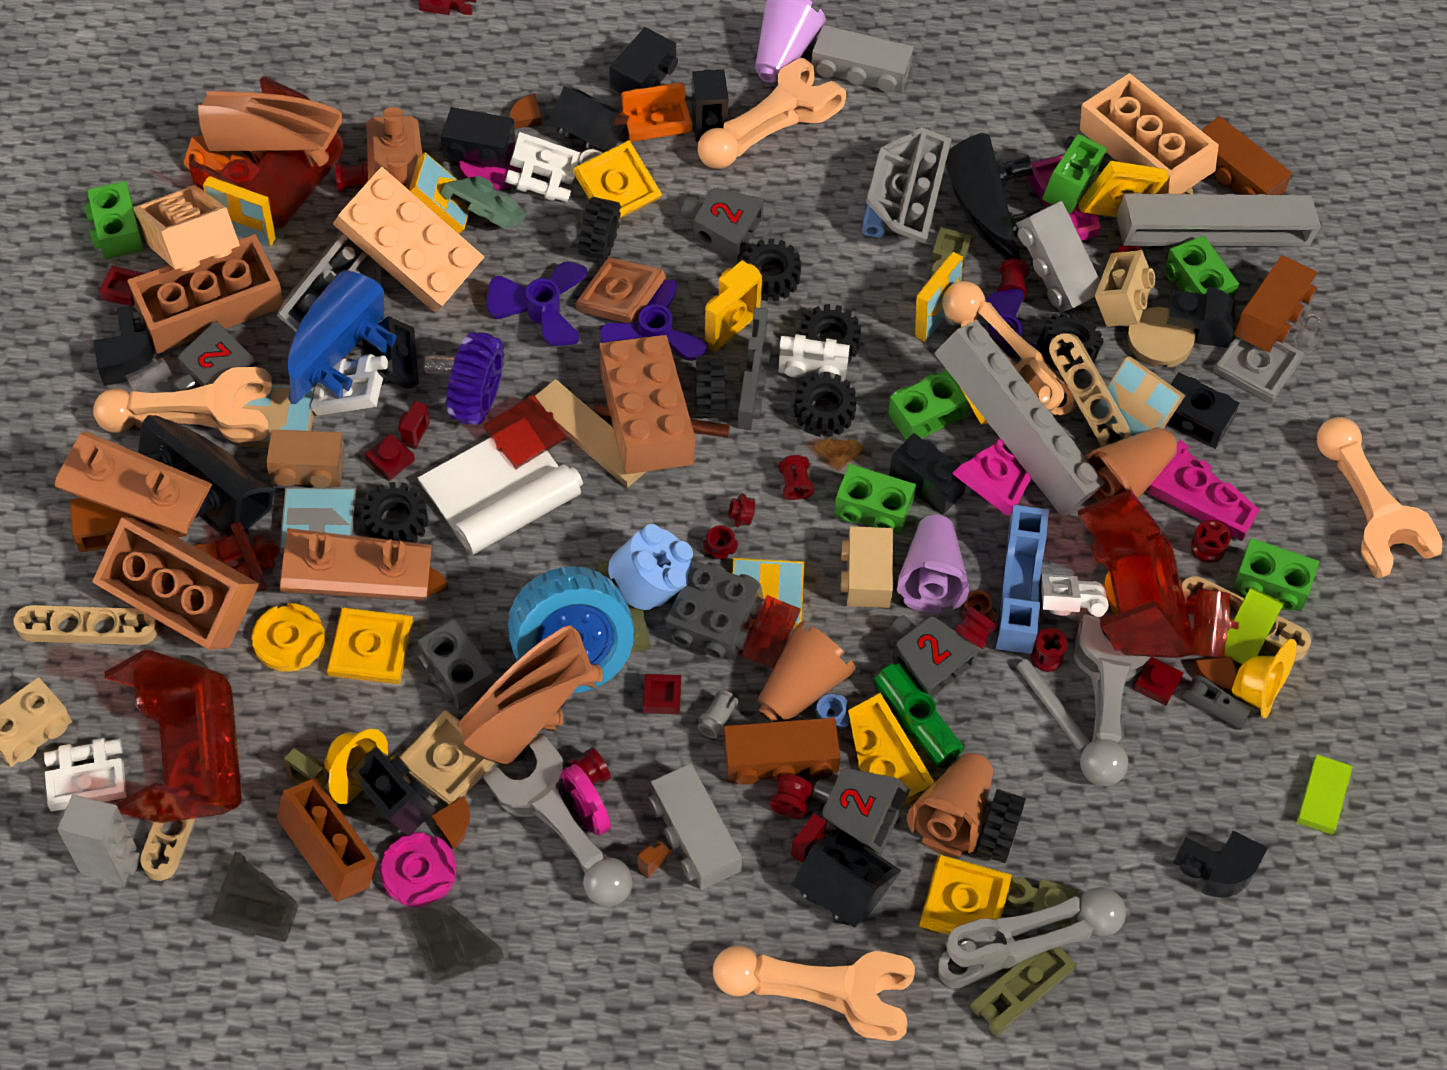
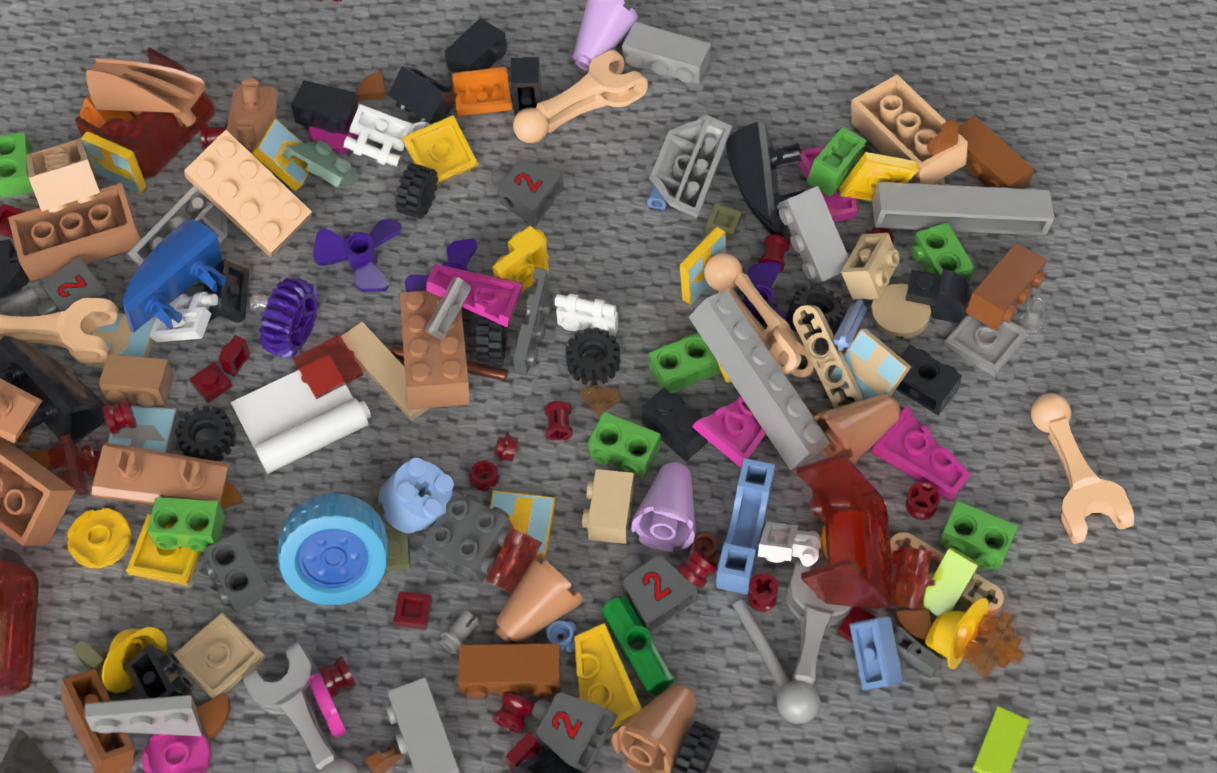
camera: 10 degrees right, 0 degrees up
(295, 499) = (119, 416): none -> dark red wheel
(391, 823) = (146, 716): none -> light grey wing
(393, 605) = (188, 516): none -> bright green brick
(529, 697) = (286, 609): nougat piece -> none
(620, 290) = (428, 244): nougat tile -> none
(663, 356) = (448, 308): none -> light grey slope
(690, 337) = (488, 295): none -> dark pink wing
(780, 256) = (564, 220): black tyre -> none
(836, 321) = (610, 281): black tyre -> none
(1110, 354) = (850, 325): none -> medium blue axle
(1180, 706) = (876, 653): none -> medium blue slope
(1195, 143) = (945, 139): none -> dark orange tile
(1310, 678) = (999, 649): none -> clear orange hips

